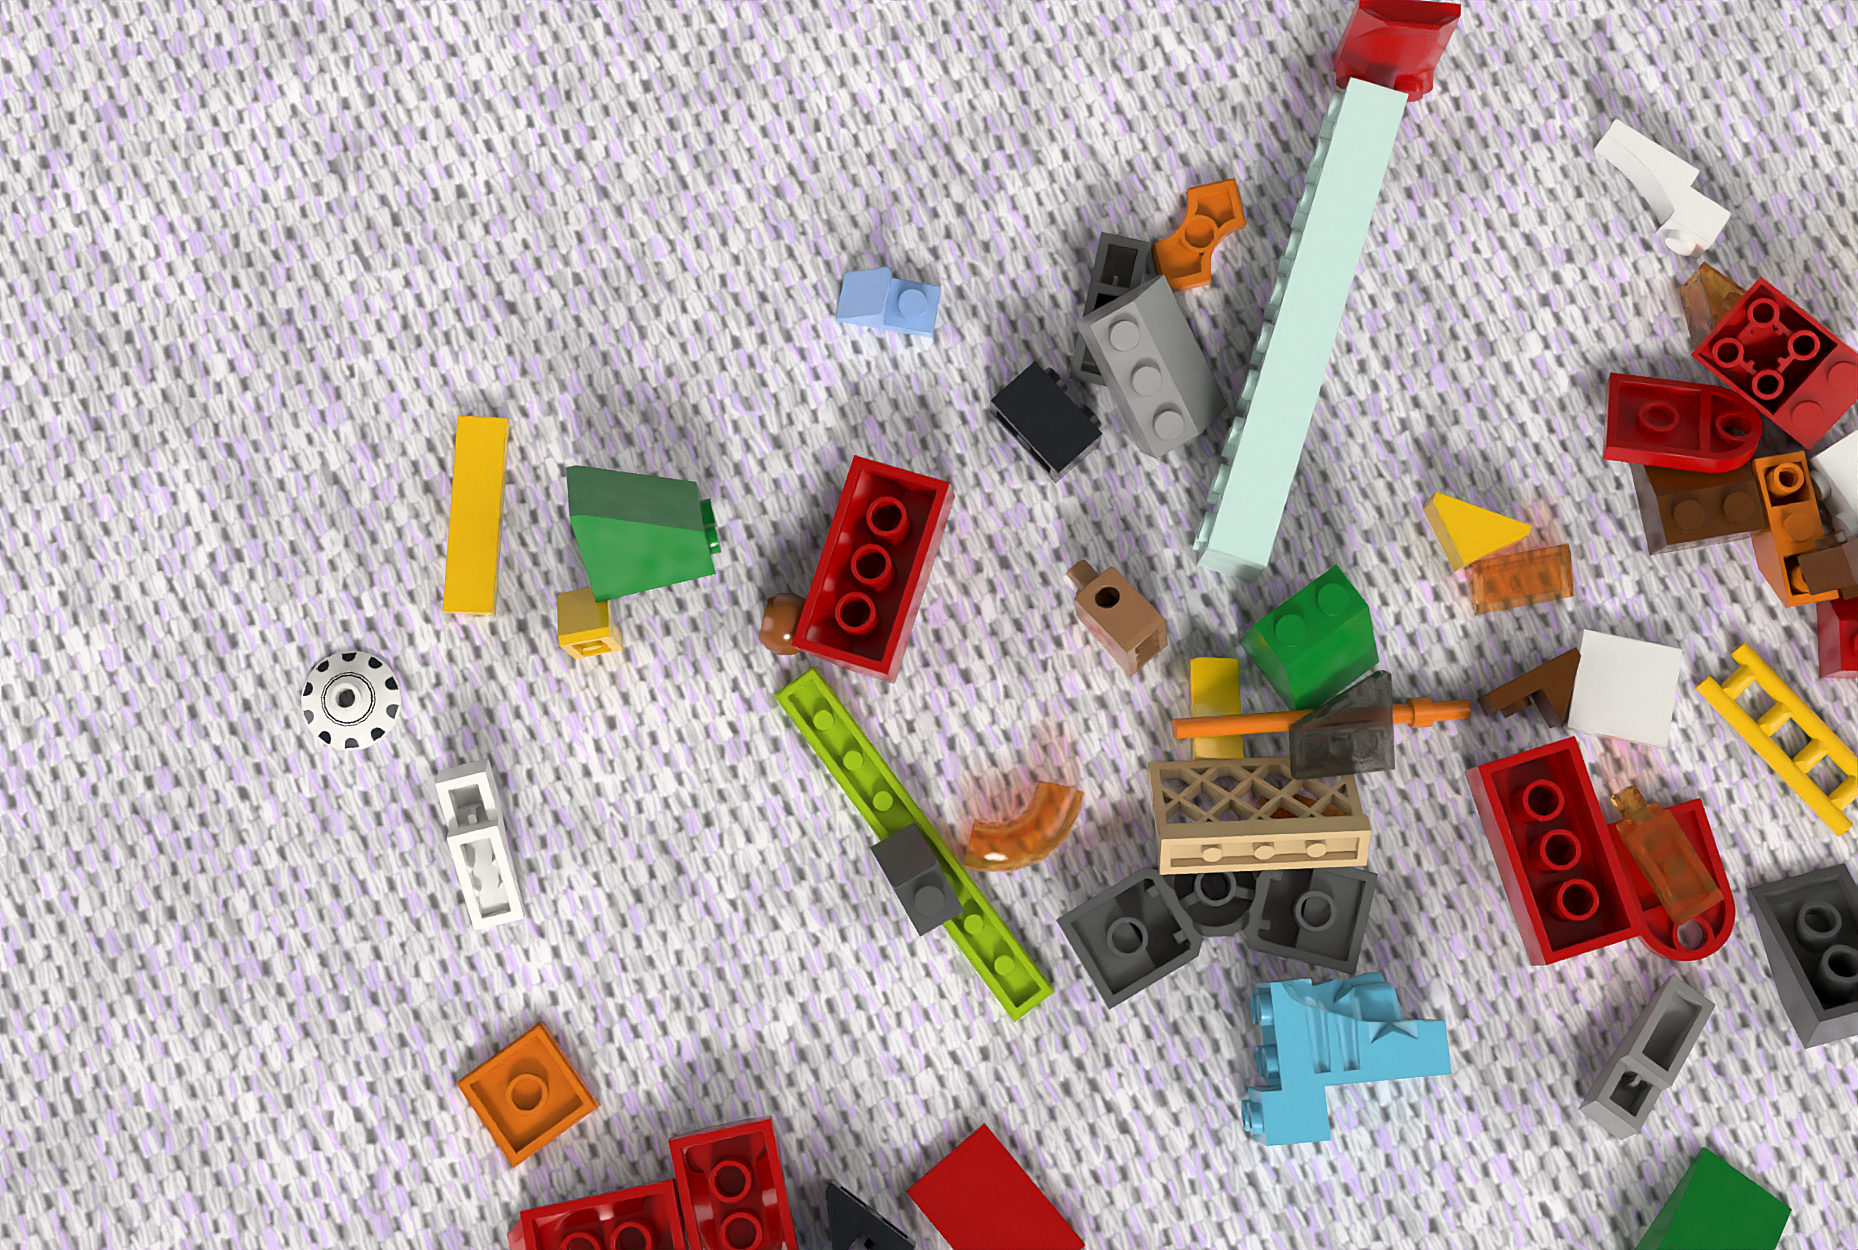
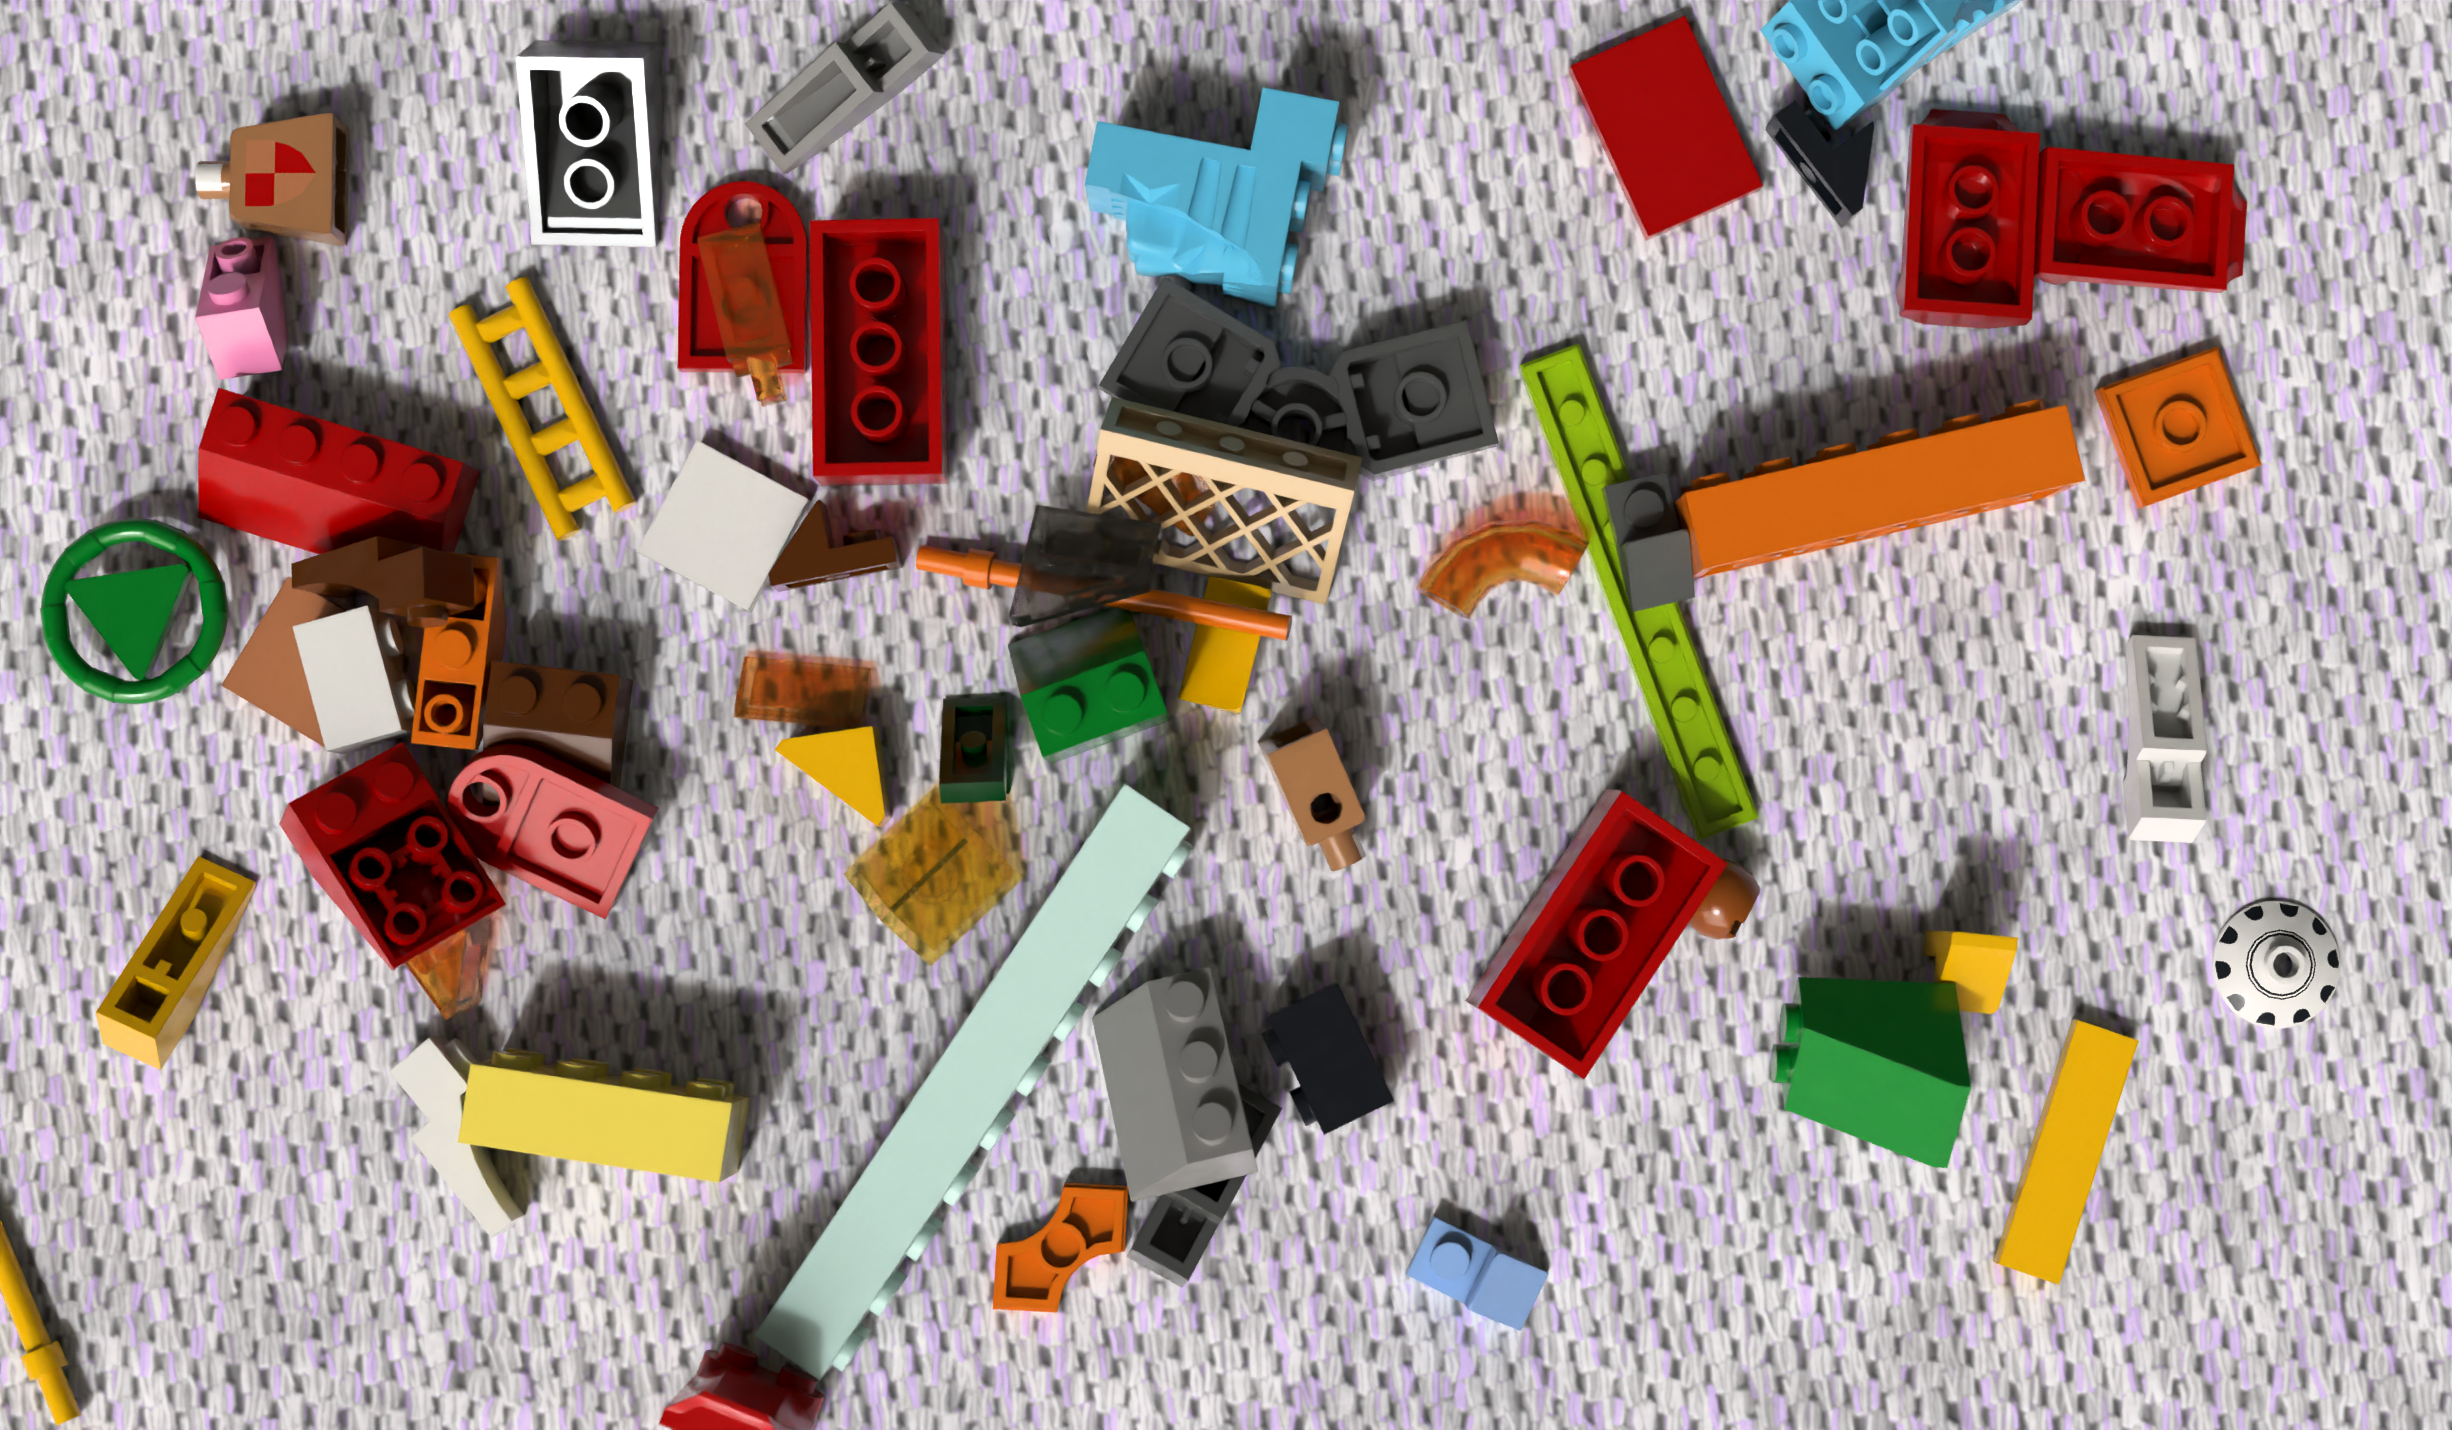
camera: 165 degrees left, 5 degrees up
(753, 965) = (1879, 491): none -> orange brick
(1379, 472) = (932, 877): none -> clear yellow slope
(1380, 569) = (974, 750): none -> dark green slope
(1564, 225) = (605, 1118): none -> light yellow brick

